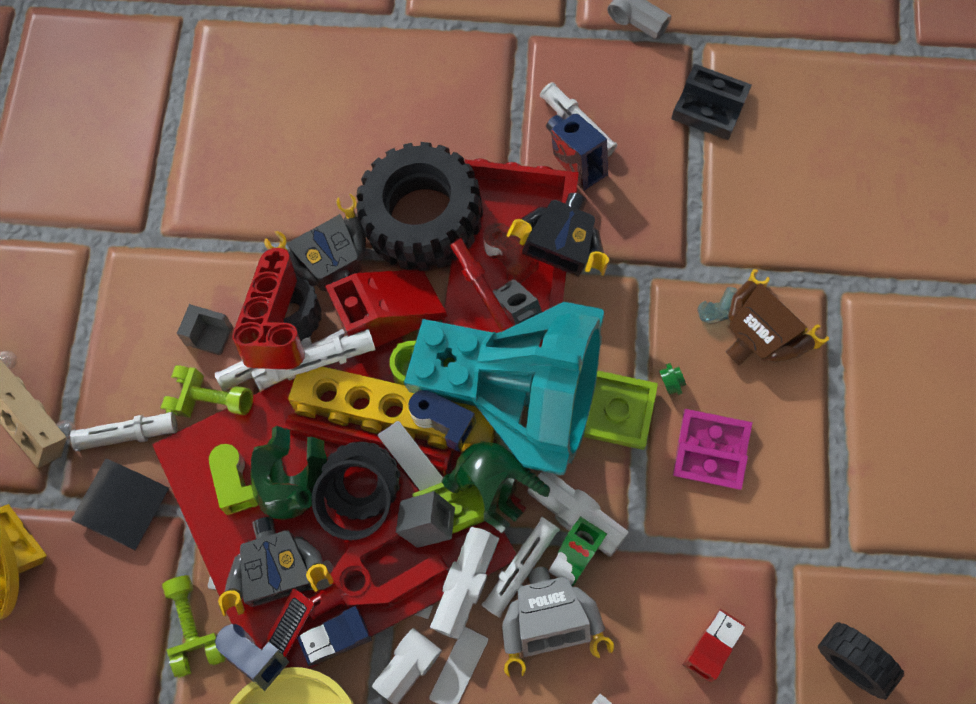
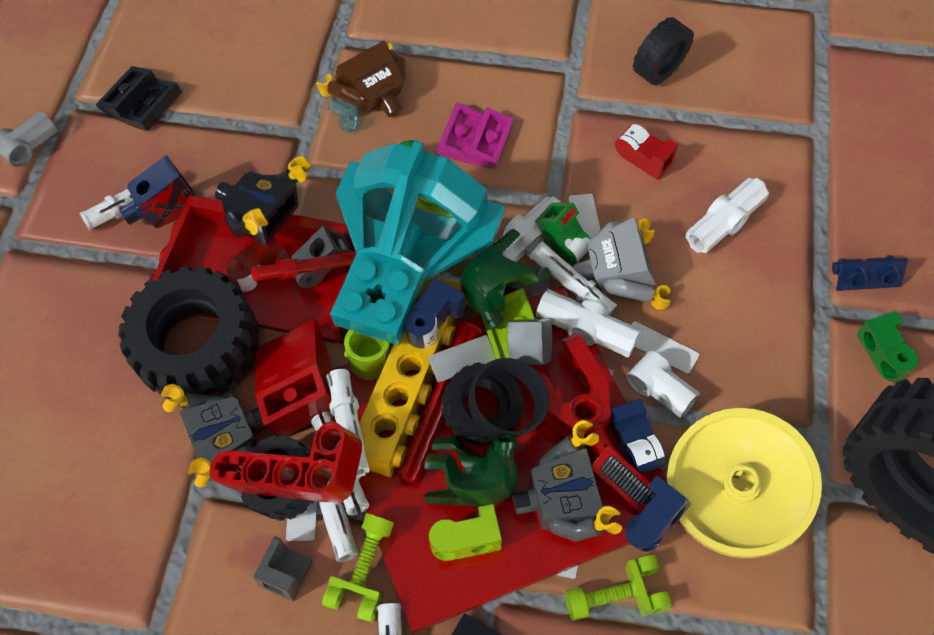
camera: 85 degrees left, 10 degrees down
(618, 580) = (587, 213): none -> white sticker

